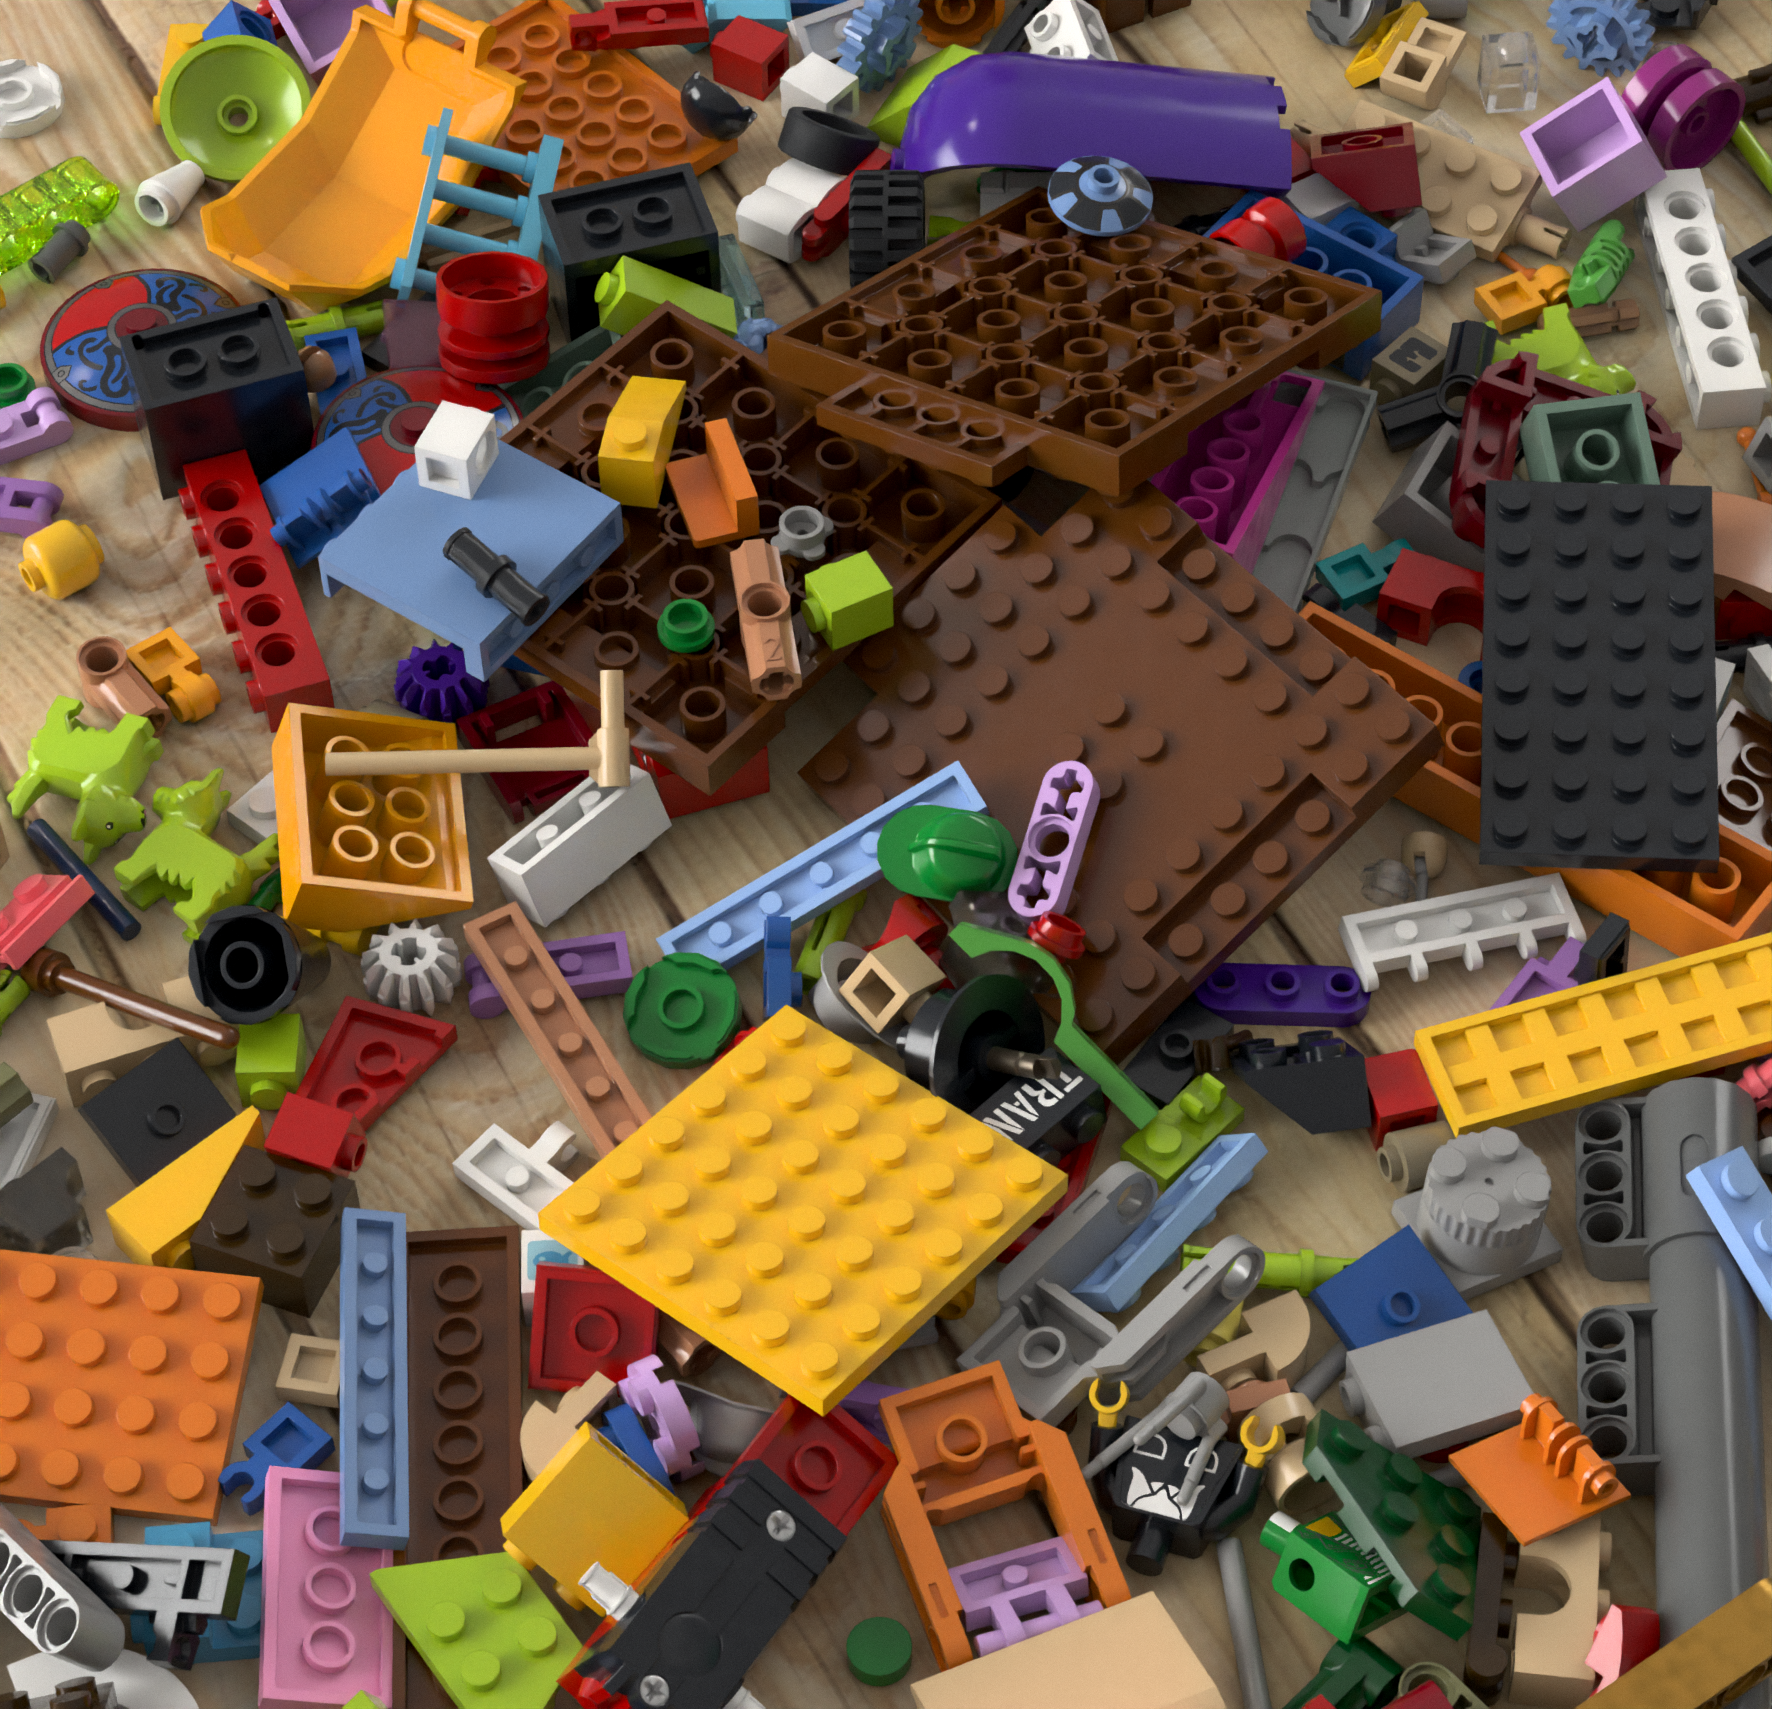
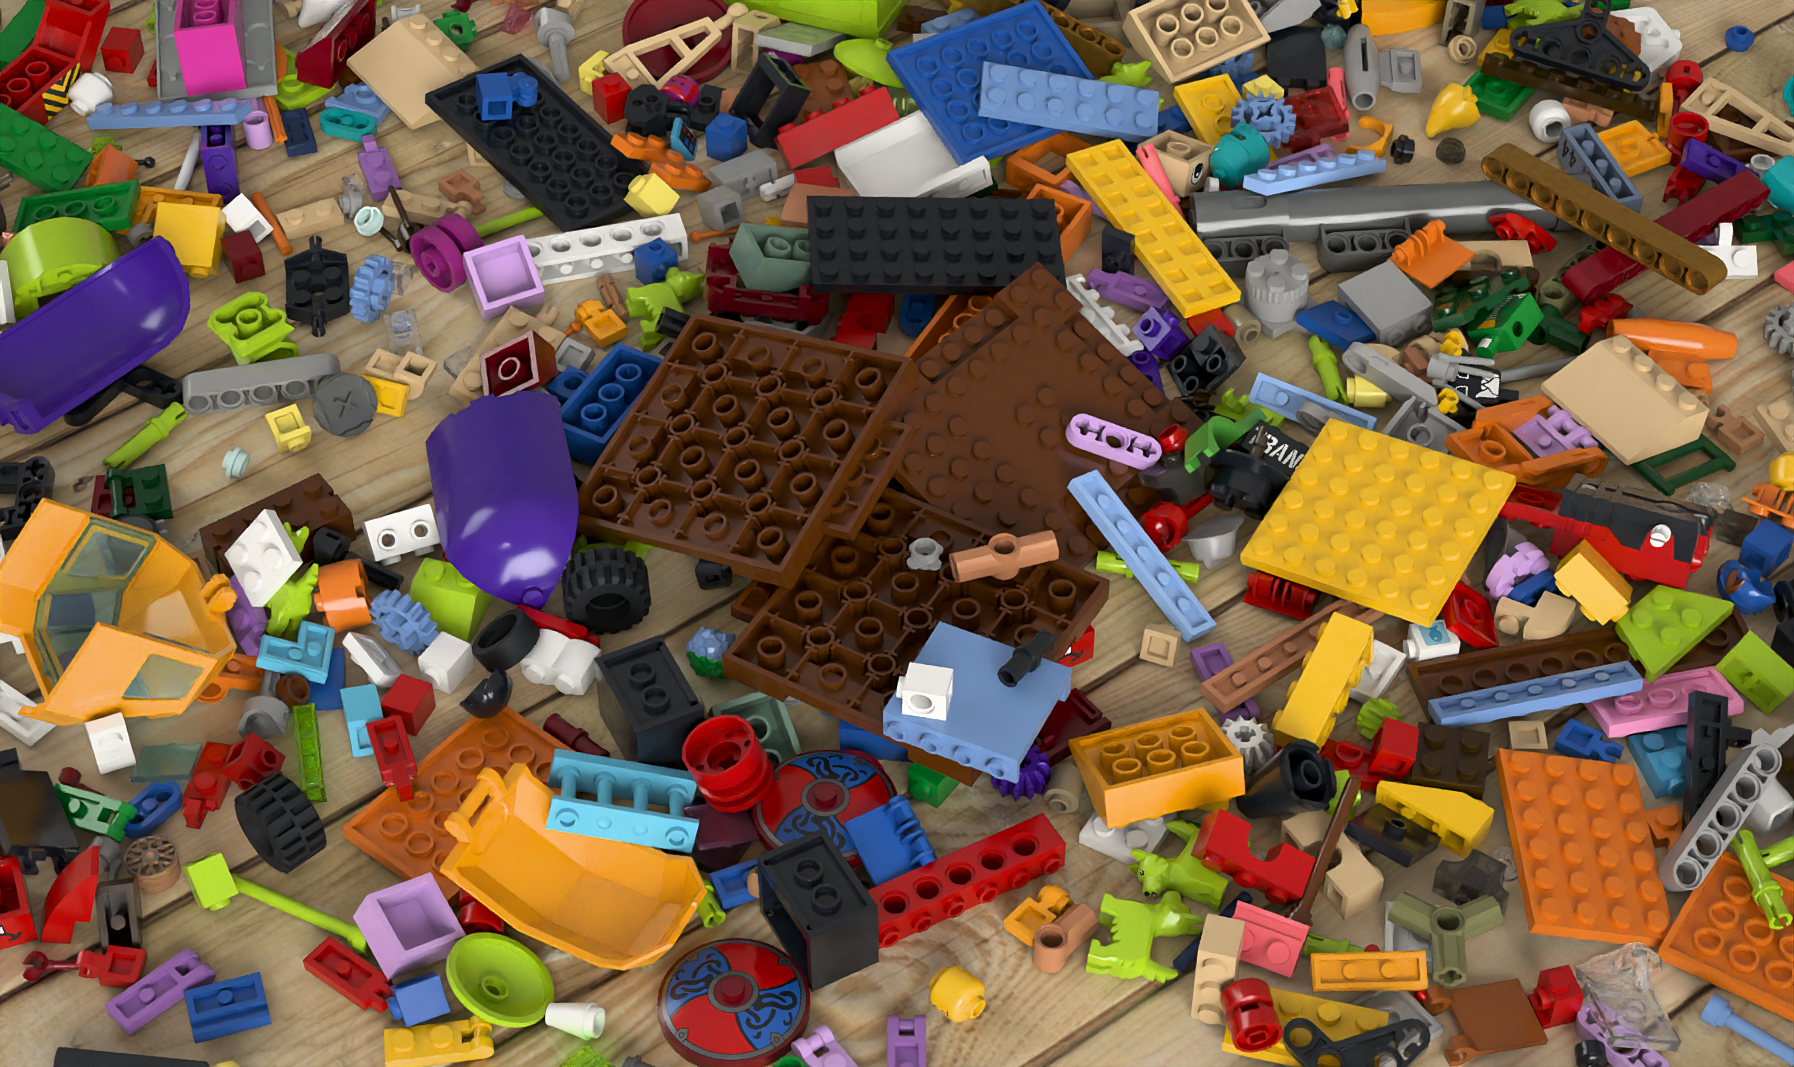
camera: 100 degrees left, 5 degrees down
(158, 862) = (1224, 848): none -> red arch
(407, 1158) = (1373, 714): none -> lime gear
(461, 1060) = (1325, 682): none -> yellow wedge
(578, 845) = (1135, 674): white brick -> none
(605, 757) = (1109, 639): tan bar -> none
(638, 289) = (706, 678): lime brick -> none
(640, 440) = (862, 635): yellow slope -> none
(656, 901) = (1160, 644): none -> tan tile
(682, 1010) = (1235, 620): green tile -> none
(685, 626) = (1013, 596): green plate -> none
(715, 490) = (895, 597): orange panel -> none
(779, 984) = (1210, 576): blue plate -> none
(848, 600) = (979, 519): lime brick -> none
(892, 984) = (1213, 512): tan brick -> none
(946, 850) = (1127, 487): green piece -> none
(1100, 196) = (598, 460): dish -> none
(1267, 229) = (614, 395): red wheel -> none
(1393, 1011) = (1160, 333): none -> dark purple brick
(1600, 266) = (581, 285): bright green hinge -> none
(1656, 360) = (654, 261): none -> blue brick

